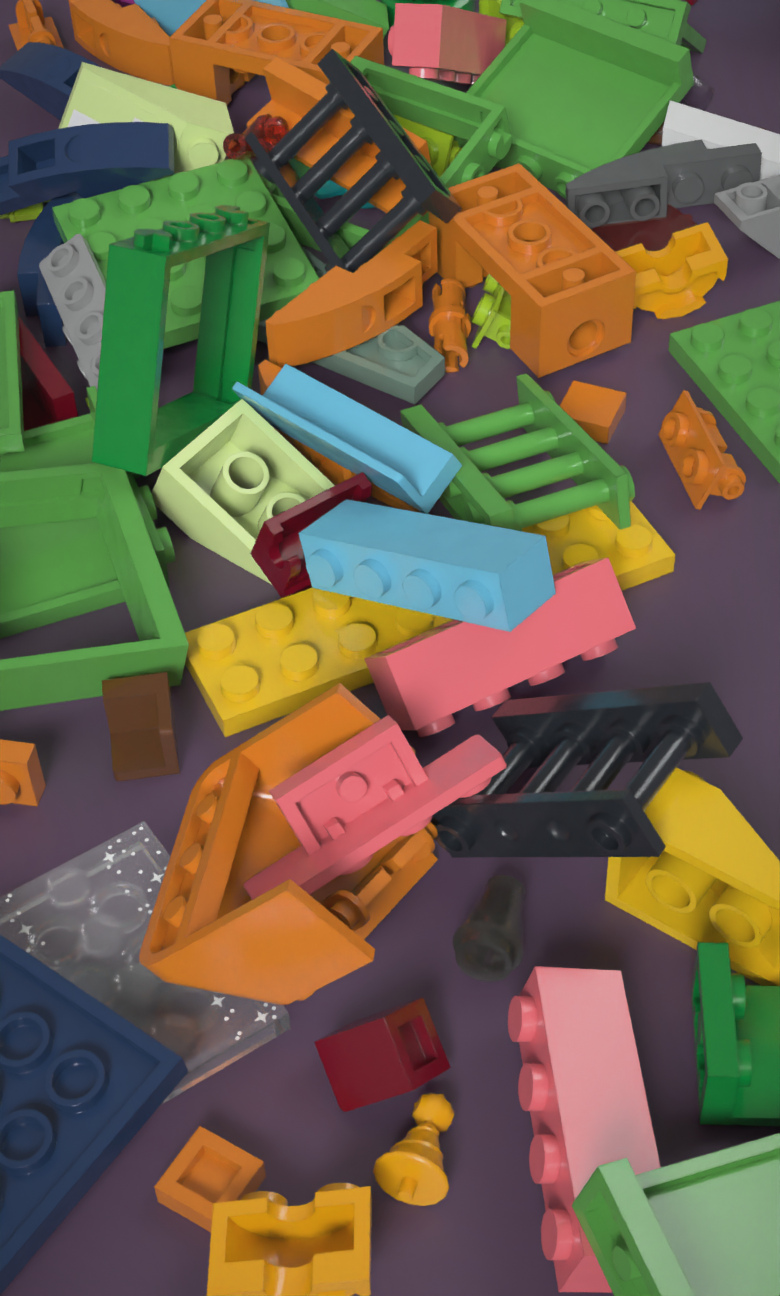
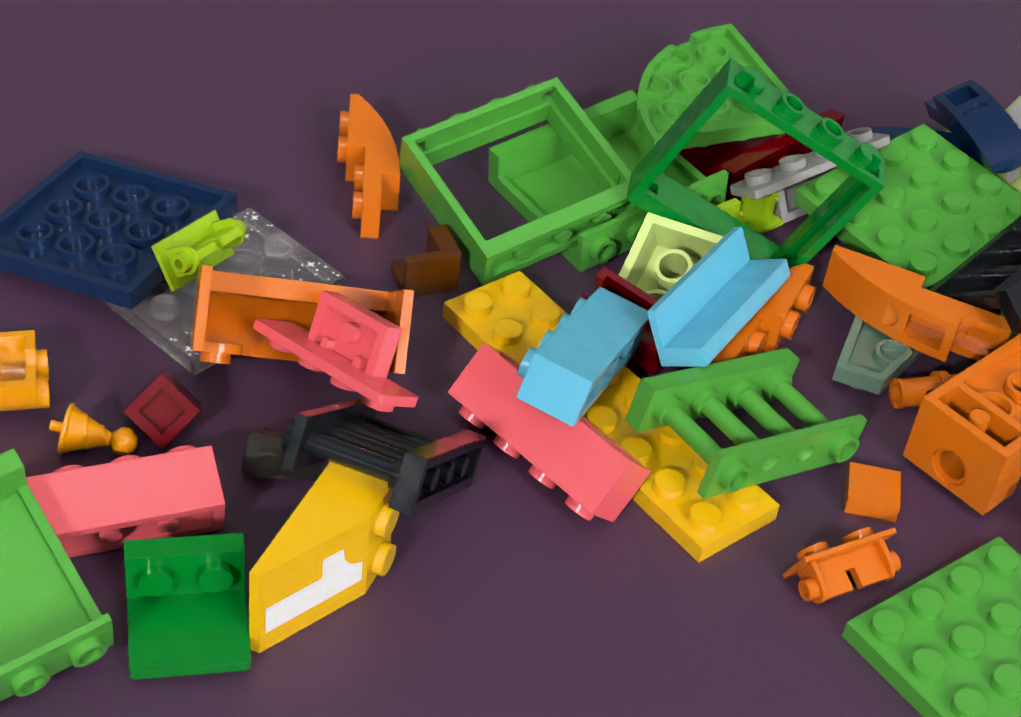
camera: 70 degrees right, 5 degrees down
(120, 974) = (197, 244): none -> lime hinge
(208, 1173) = (70, 344): orange tile -> none
(374, 890) = (296, 386): orange hinge -> none

